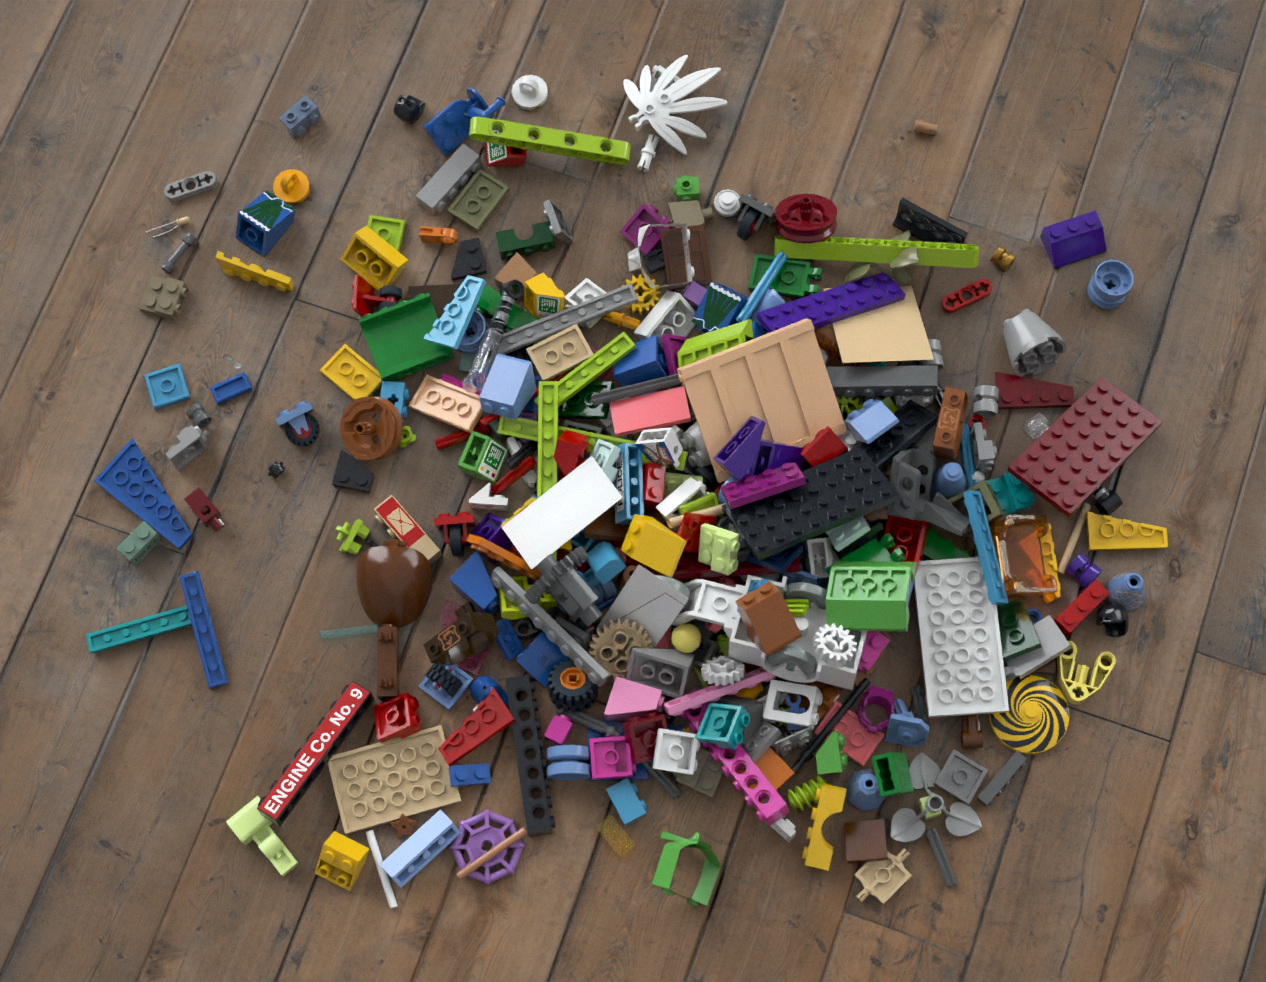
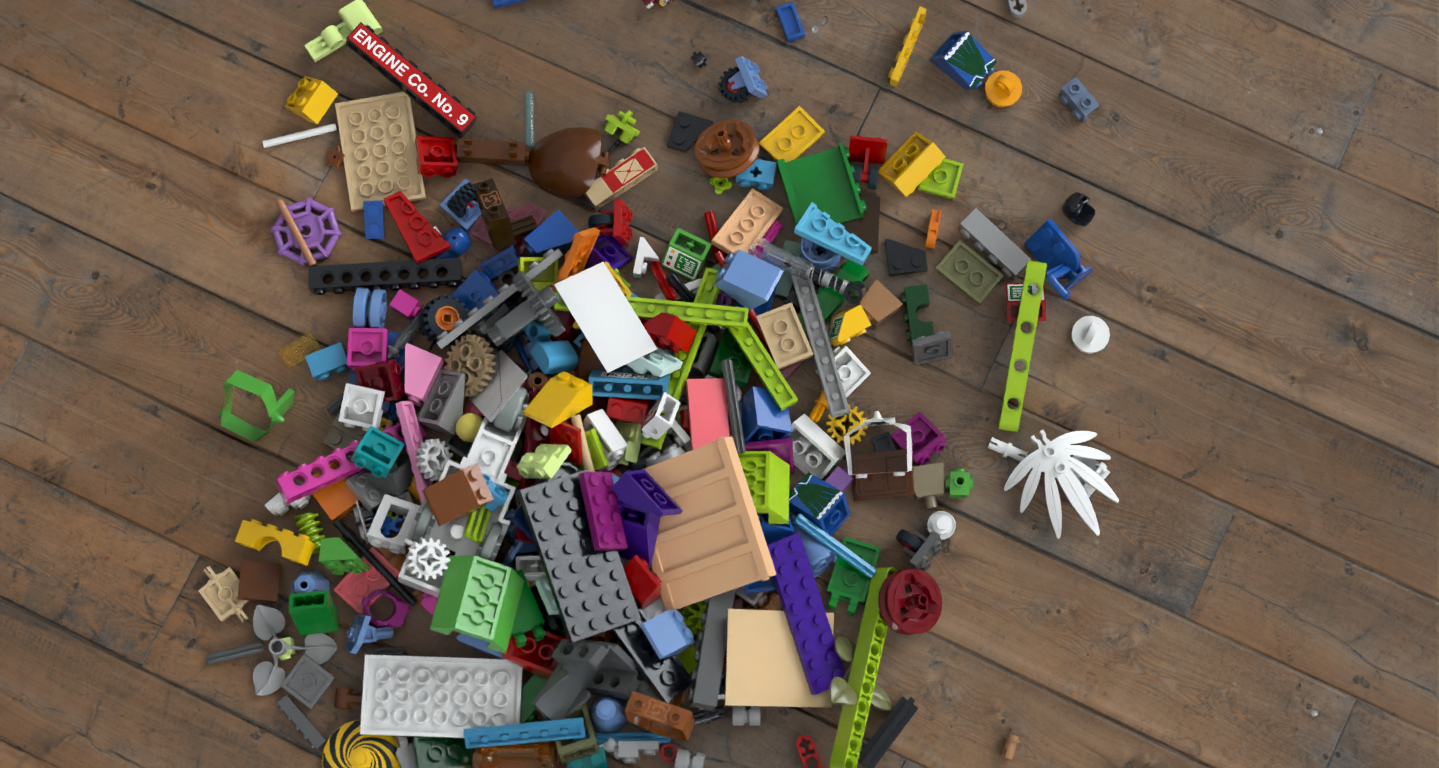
camera: 95 degrees right, 5 degrees up
(420, 848) = (310, 169): light blue brick -> none

